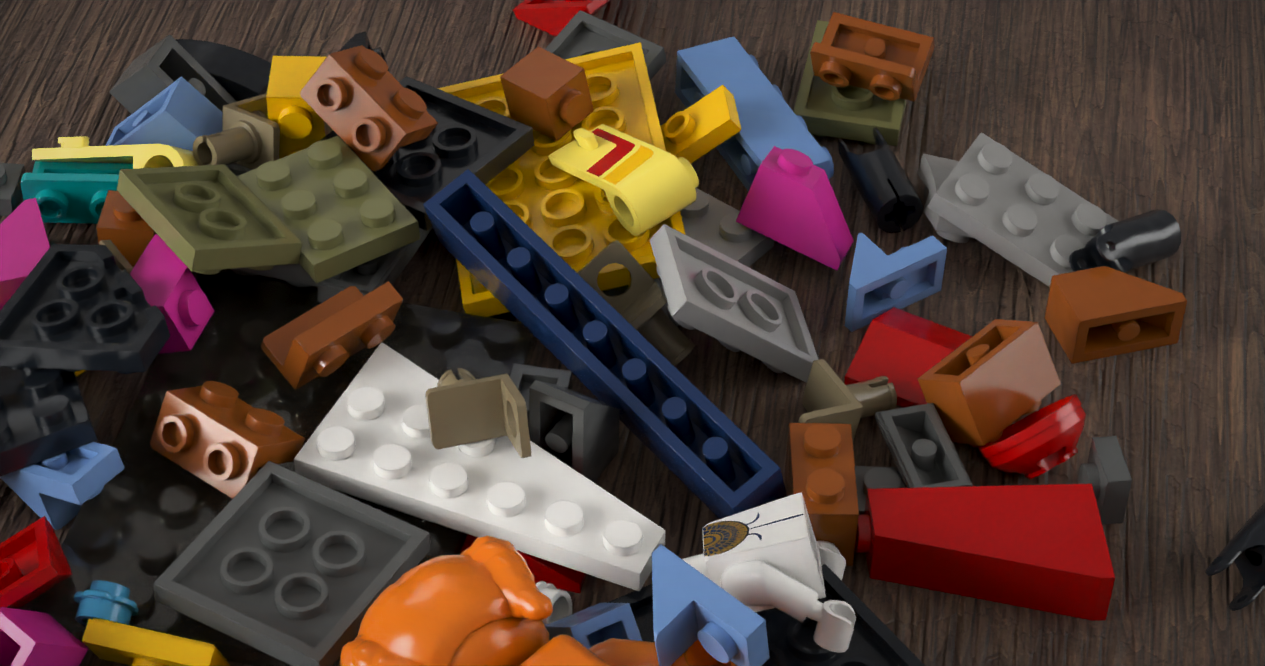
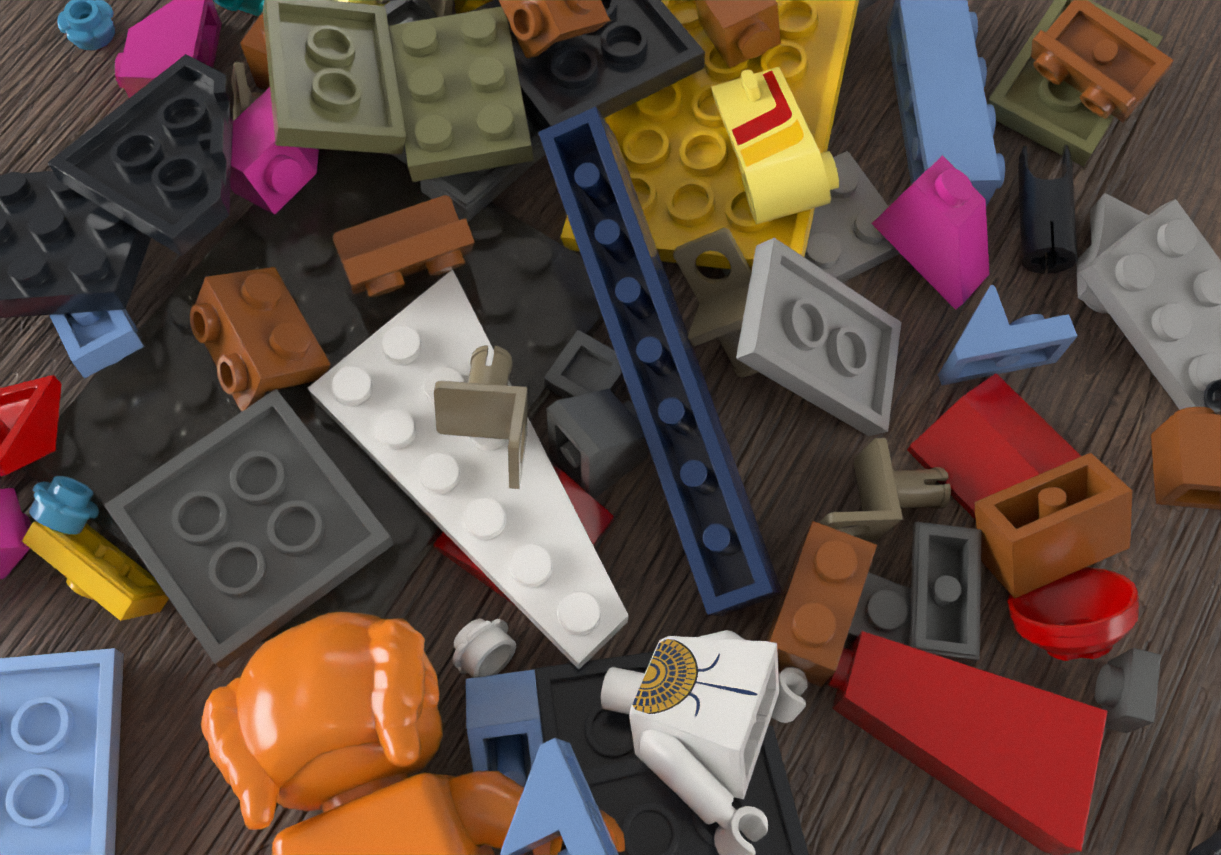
camera: 20 degrees right, 25 degrees up
(702, 125) = (881, 95): yellow plate -> none

